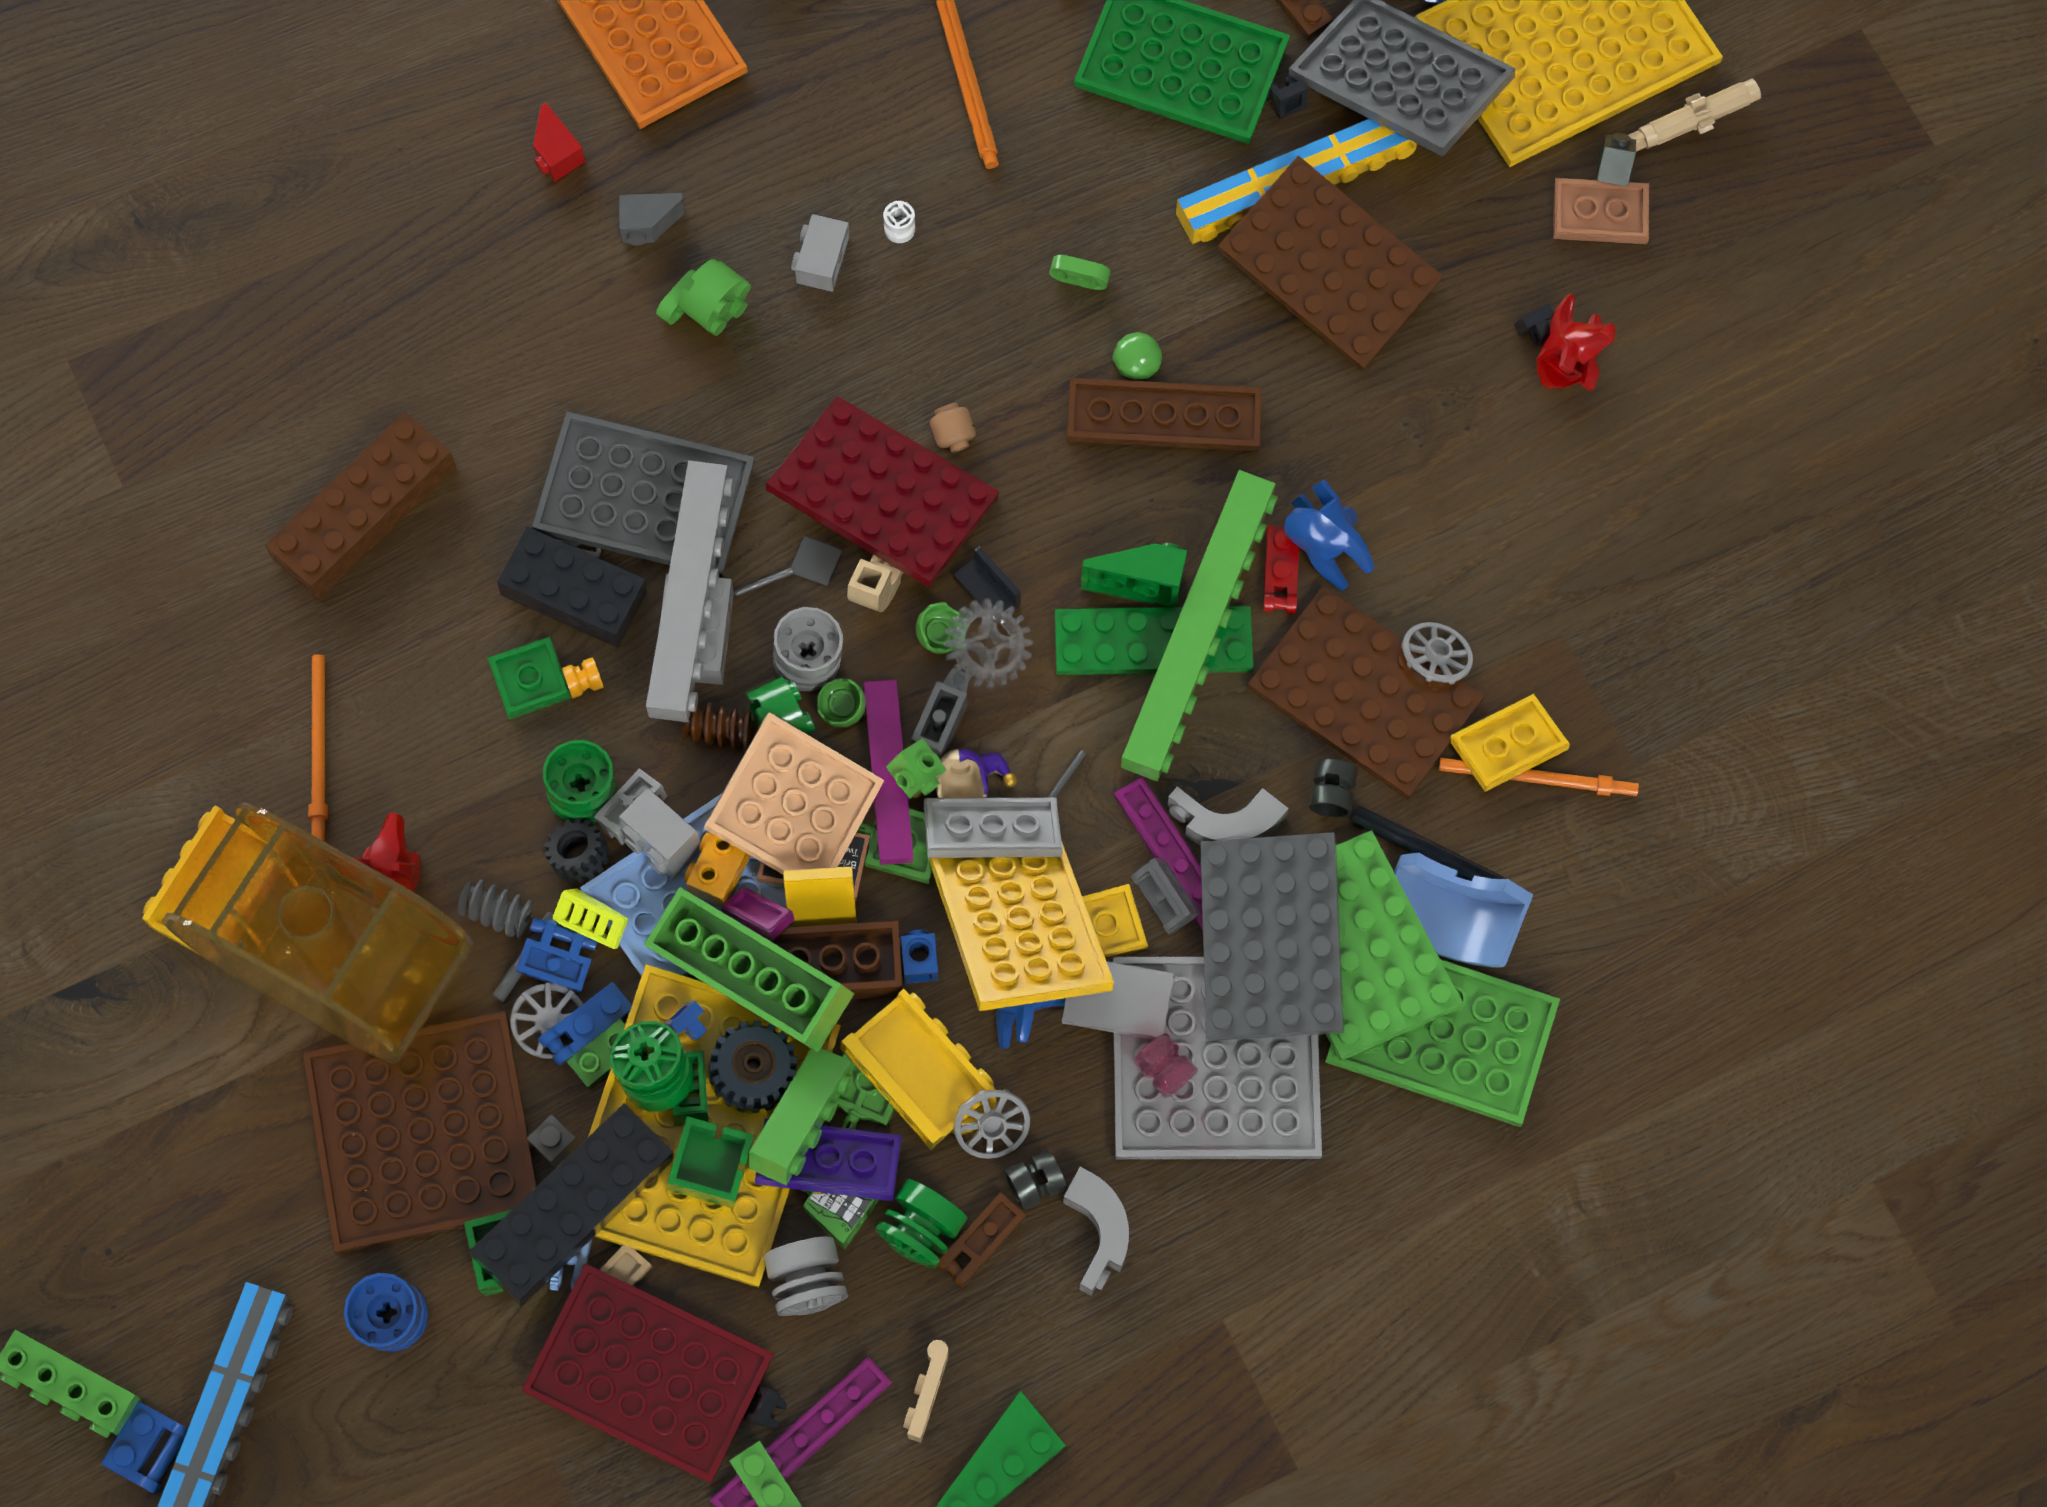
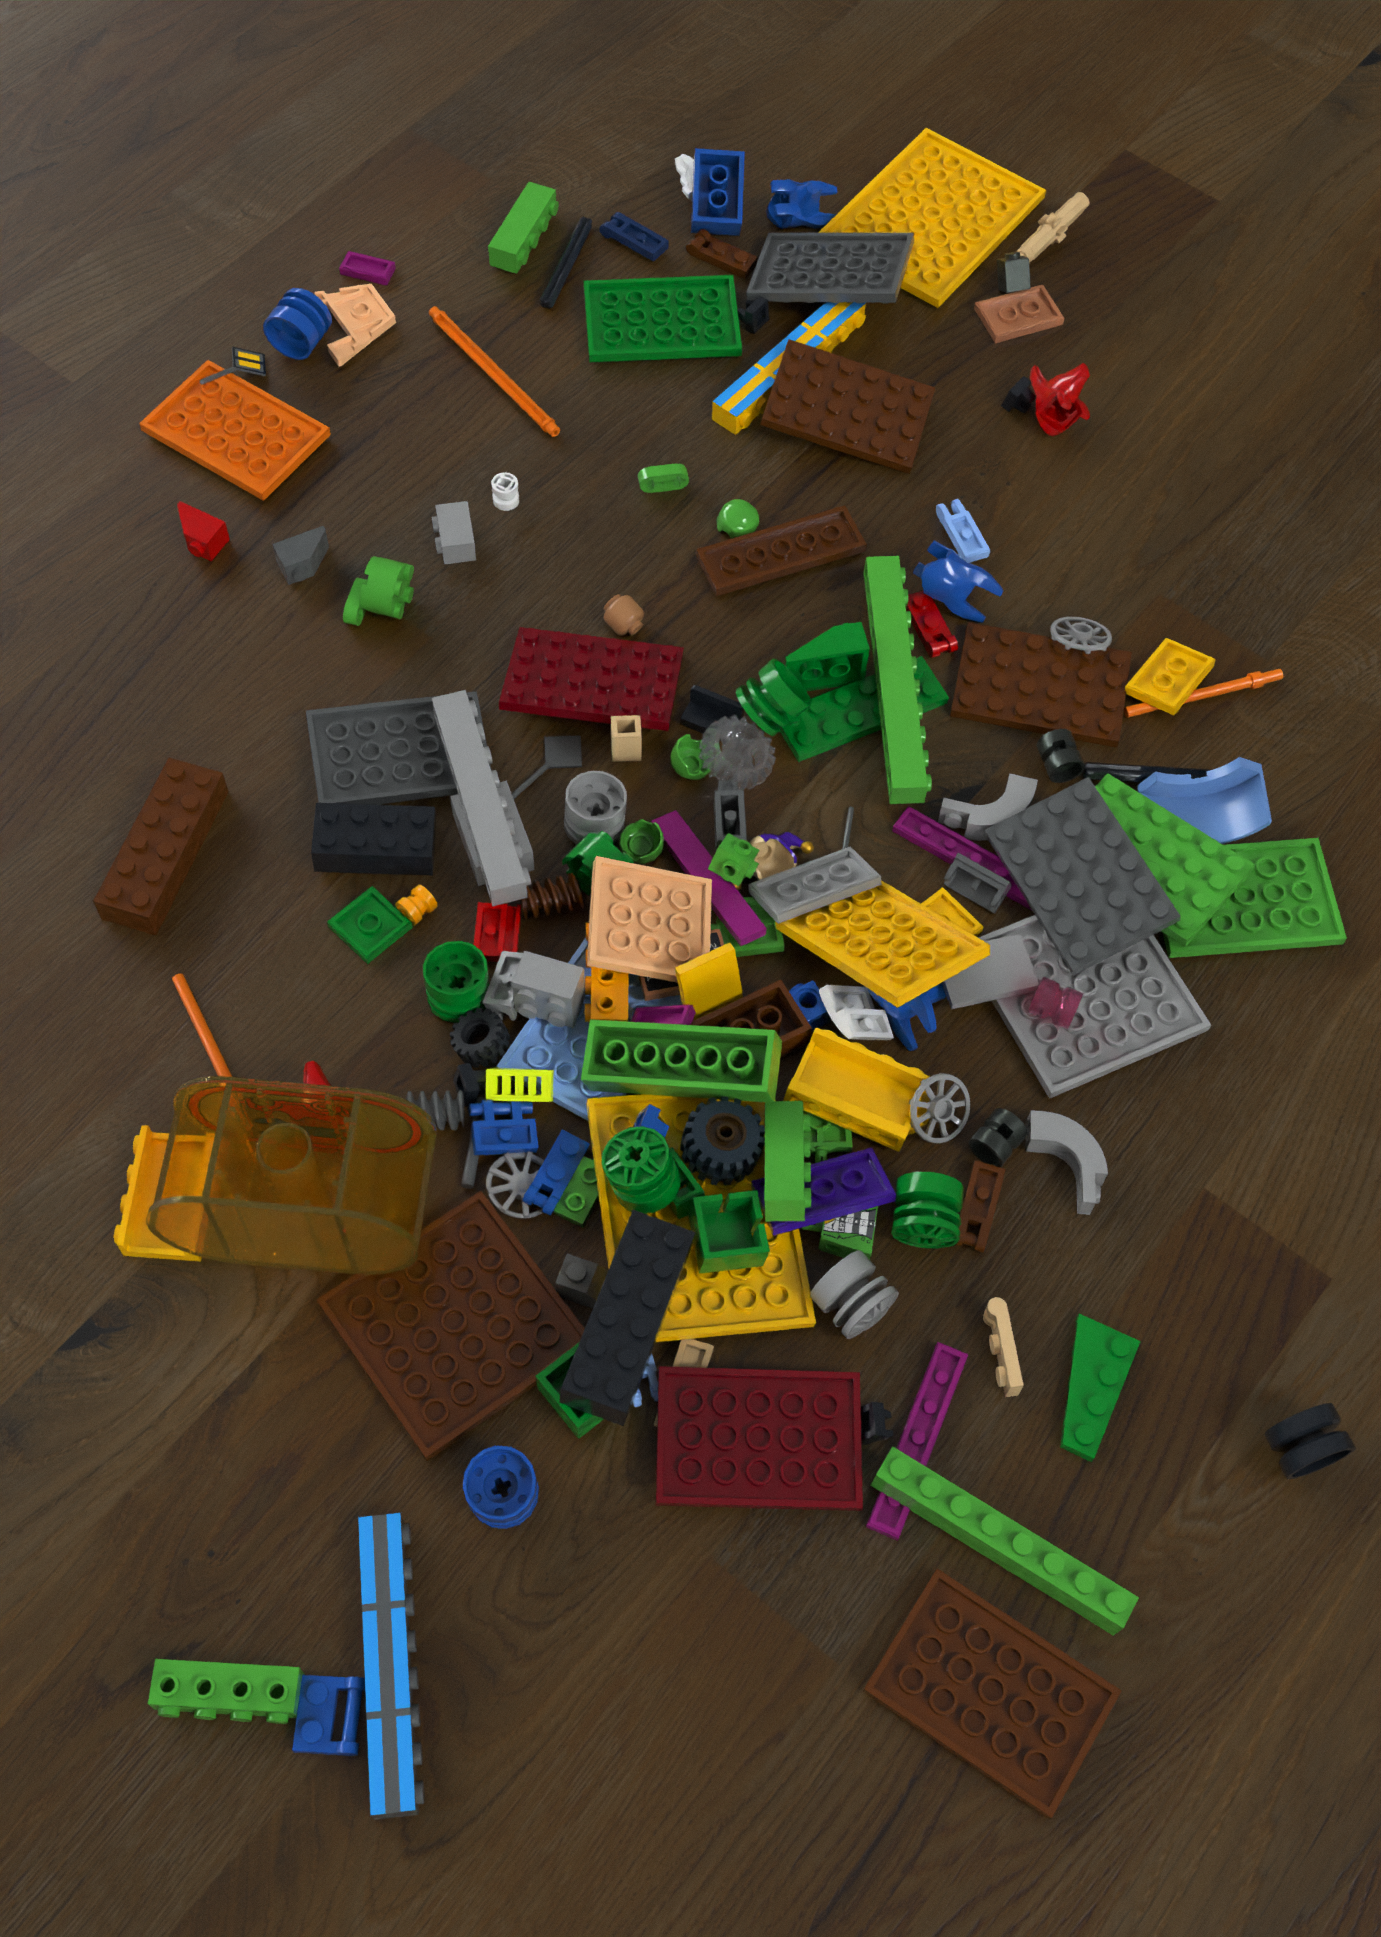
camera: 25 degrees left, 10 degrees down
(545, 894) = (470, 1082): none -> black tile
(648, 743) = (497, 929): none -> red plate
(951, 990) = (854, 1013): none -> white slope
(1051, 599) = (770, 699): none -> green wheel
(1378, 473) = (963, 532): none -> light blue hinge

